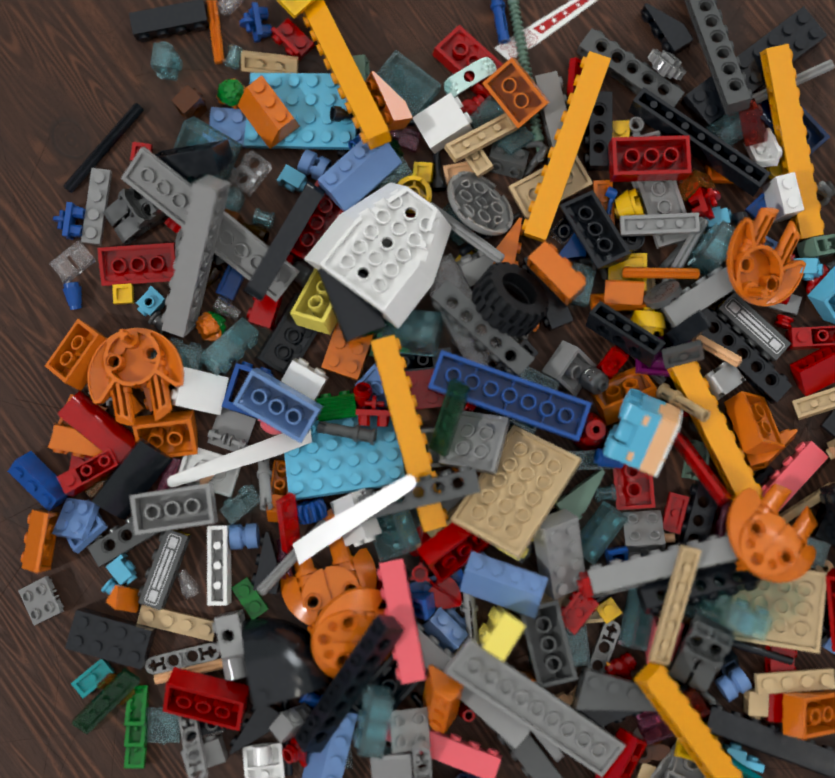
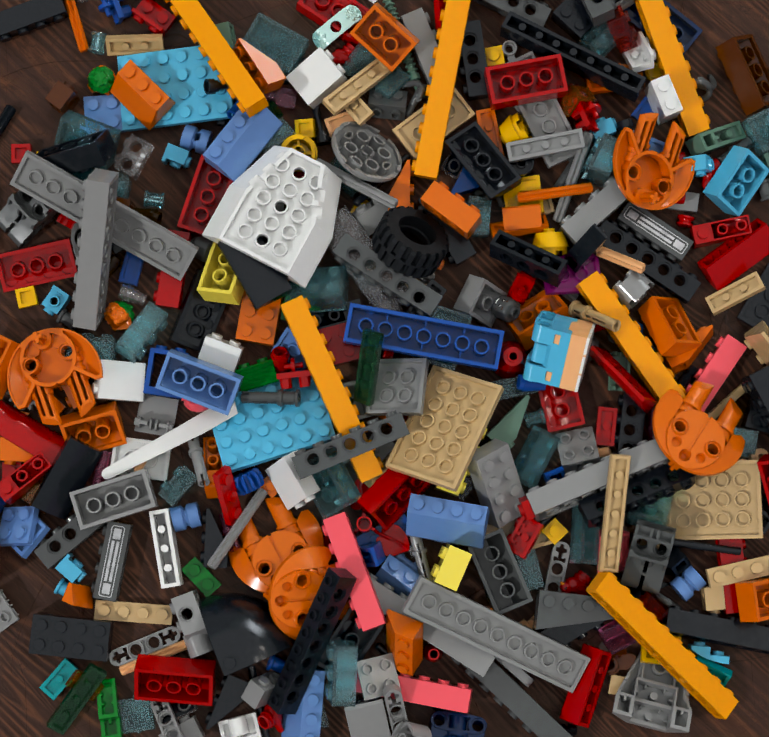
camera: 10 degrees left, 0 degrees up
(165, 61) = (31, 58): clear light blue brick -> none
(188, 585) = (138, 573): clear cone -> none
(284, 241) = (180, 220): black beam -> none
(347, 520) = (279, 487): white sticker -> none
(610, 193) = (495, 121): blue hand -> none
(662, 294) = (558, 213): dark grey tile -> none
(682, 354) = (586, 269): dark grey plate -> none
(748, 620) = (687, 516): clear light blue brick -> none

